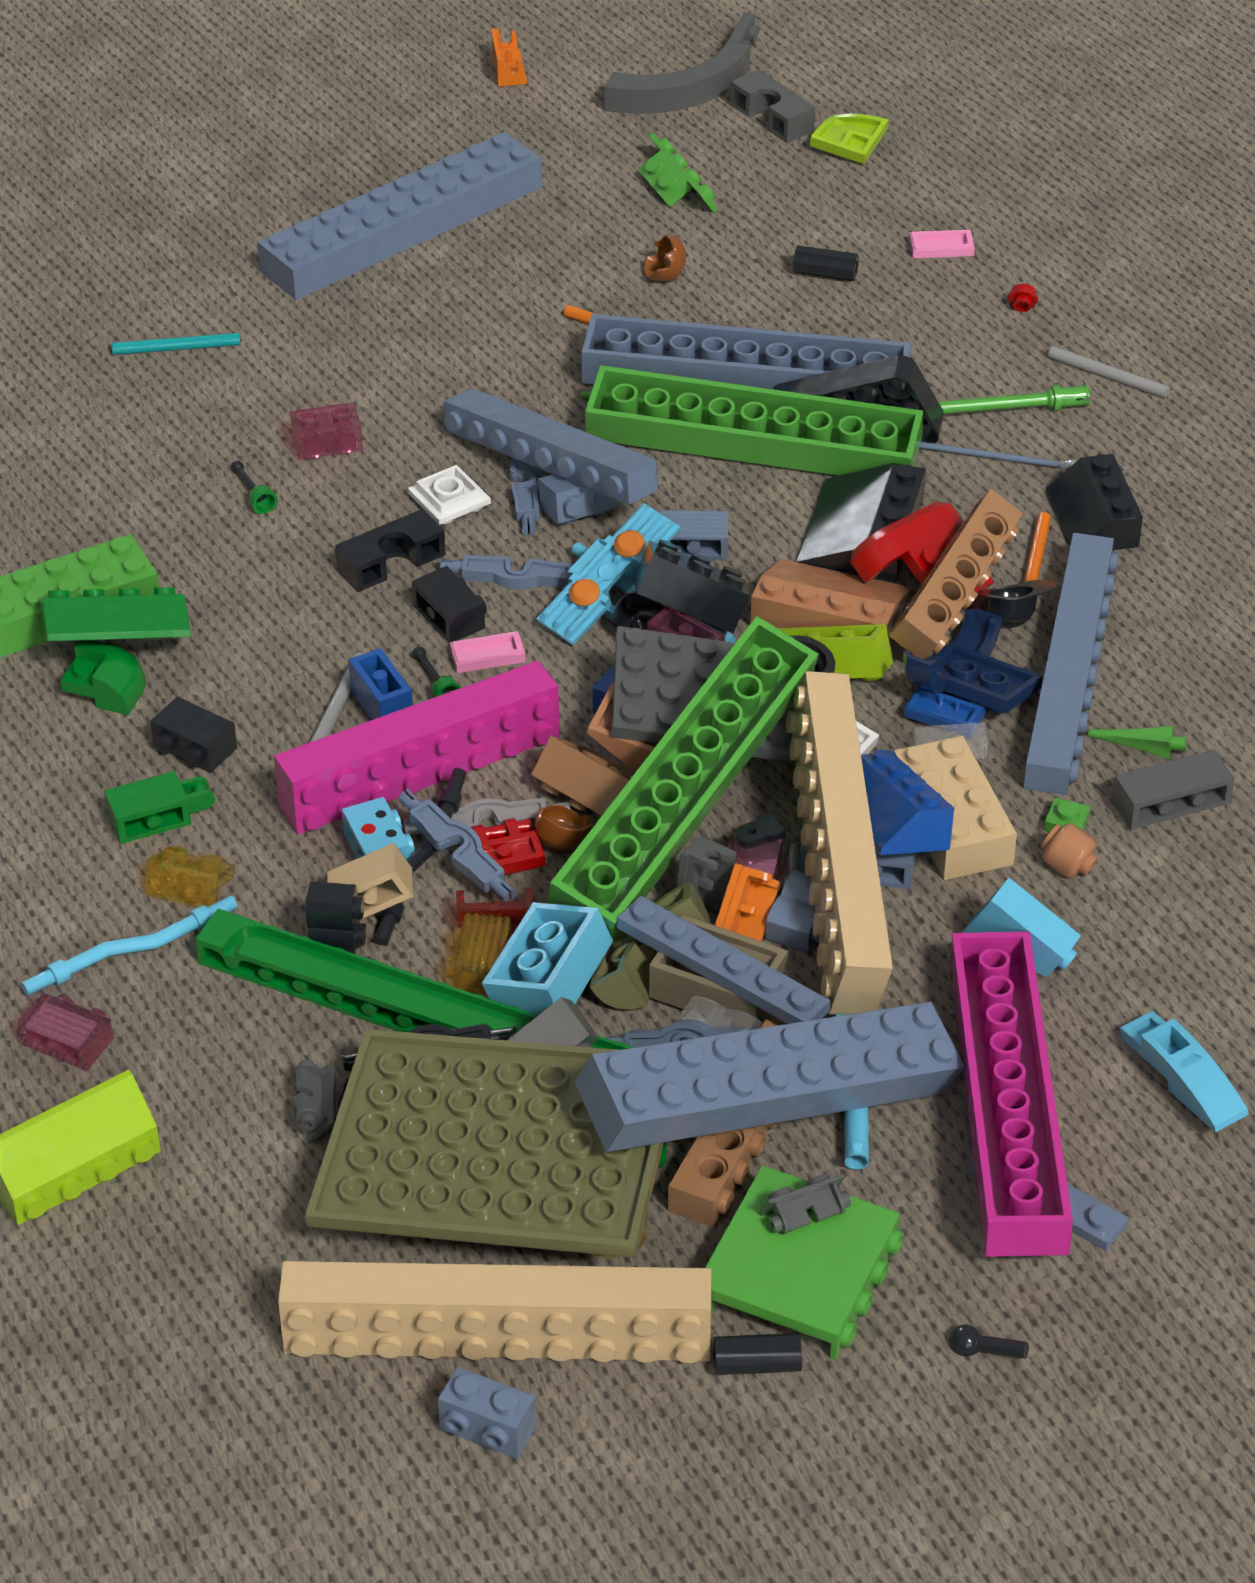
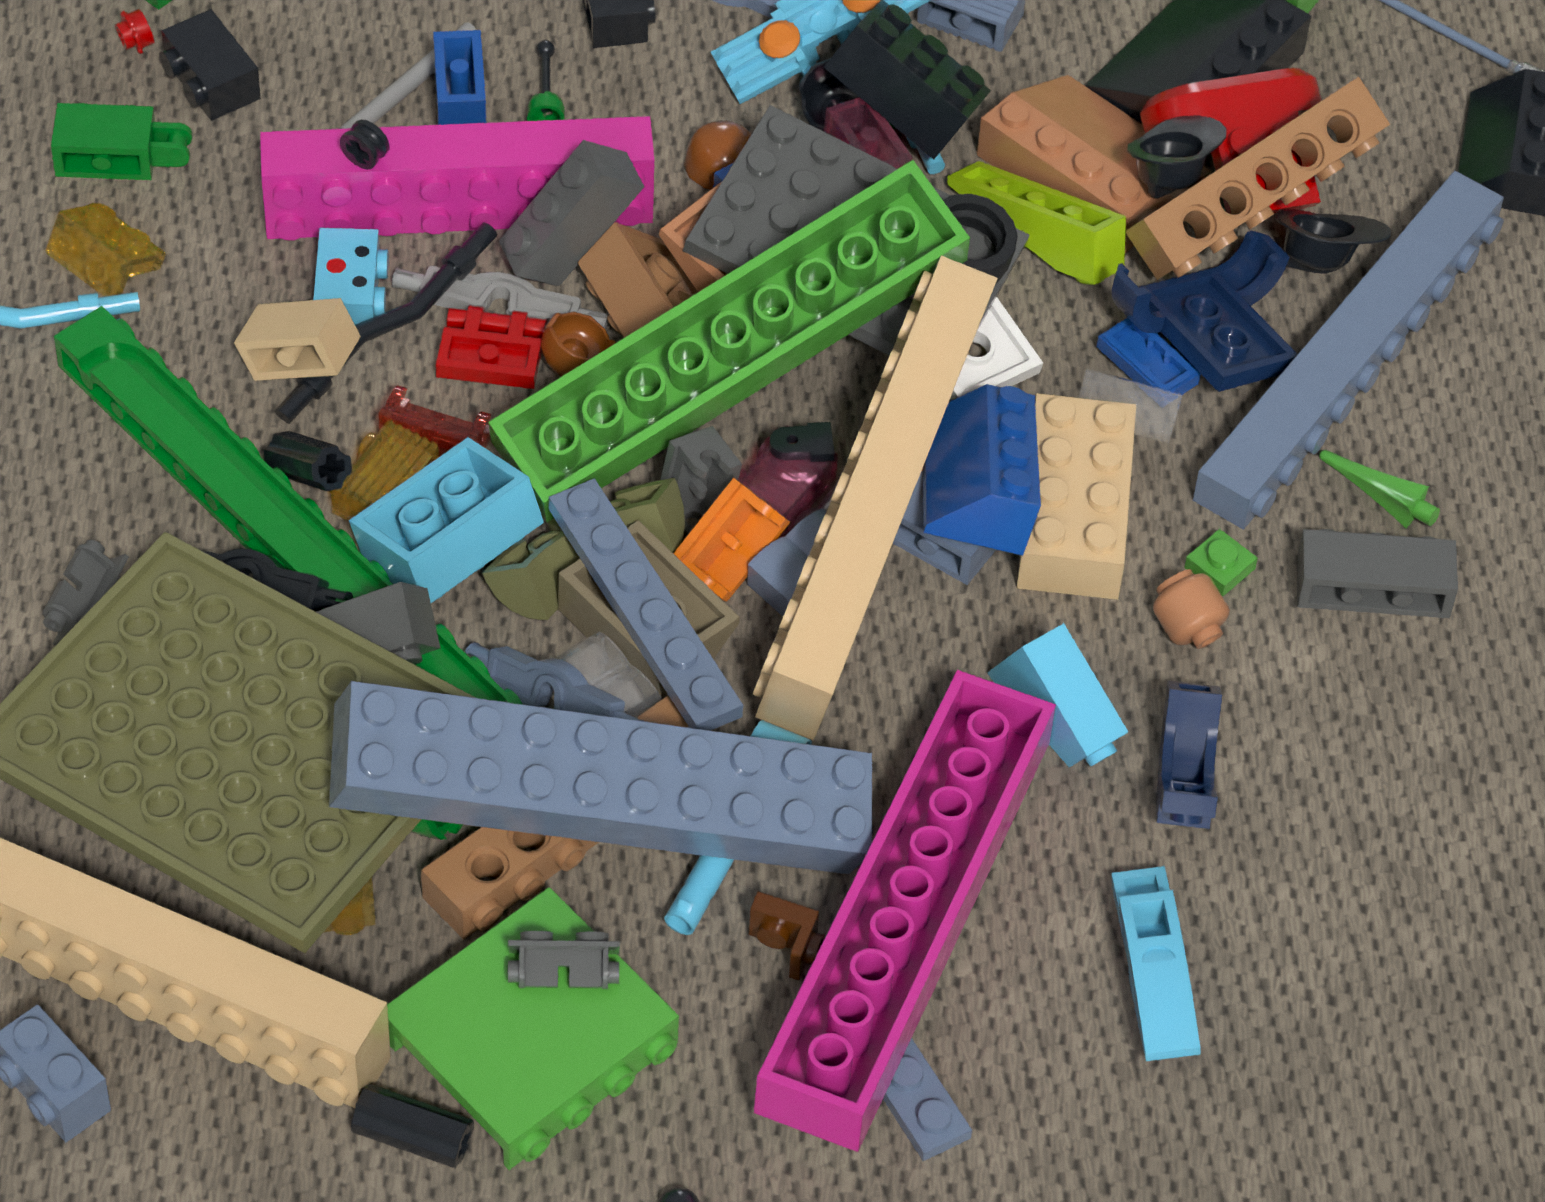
camera: 20 degrees right, 10 degrees up
(123, 731) = (134, 31): none -> red plate
(335, 915) = (228, 369): black brick -> none
(357, 736) = (364, 144): none -> black bush
(428, 956) = (308, 460): none -> black axle
(469, 857) = (439, 345): sand blue piece -> none
(487, 652) = (629, 76): bright pink tile -> none
(517, 740) = (571, 213): none -> dark grey brick
(578, 676) = (712, 149): none -> dark orange hair
(897, 573) = (1175, 152): none -> black piece
(932, 1135) = (789, 925): none -> reddish brown bracket
(1037, 547) = (1408, 173): orange bar -> none
(1124, 939) = (1188, 755): none -> dark blue arch

